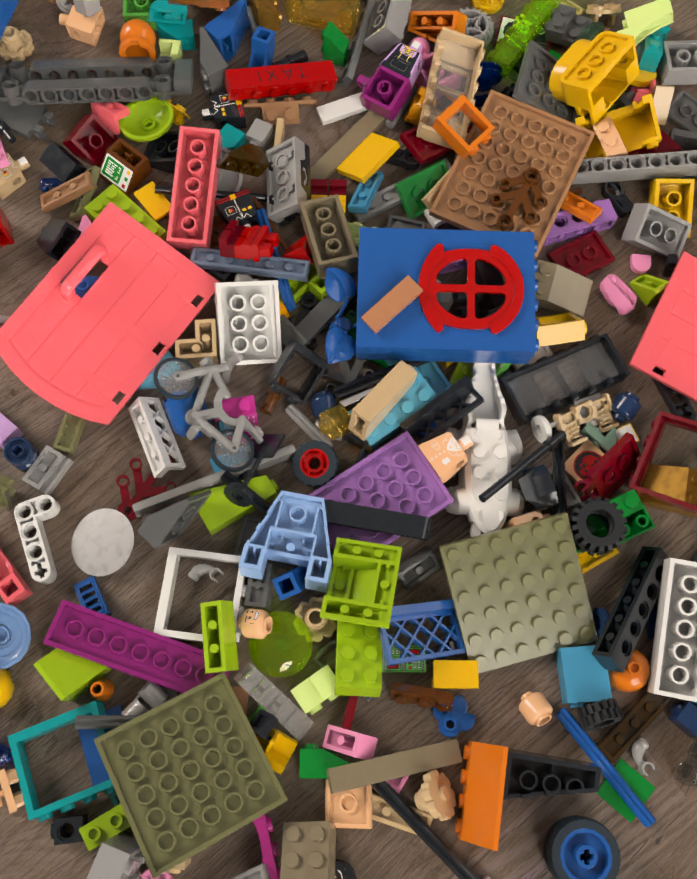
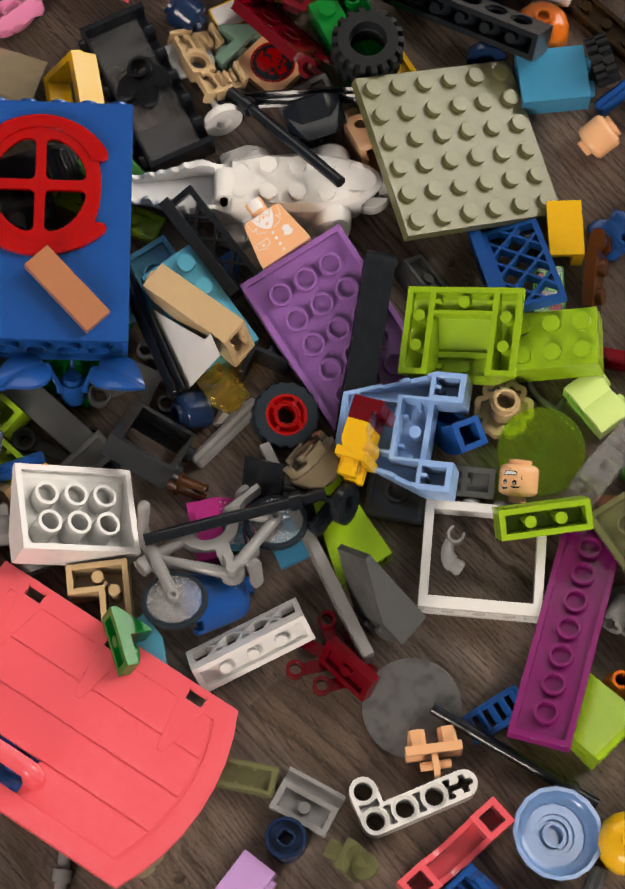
camera: 85 degrees left, 0 degrees up
(35, 646) = (509, 752): none -> black bar
(70, 563) = (446, 747): none -> light nougat hips
(135, 493) = (349, 668): none -> dark red plate
(163, 348) = (122, 633): none -> green slope
(242, 459) = (293, 501): none -> black bar
(270, 475) = (313, 463): none -> dark tan cone
(279, 503) = (361, 438): none -> yellow hips
(566, 376) = (143, 86): none -> black plate

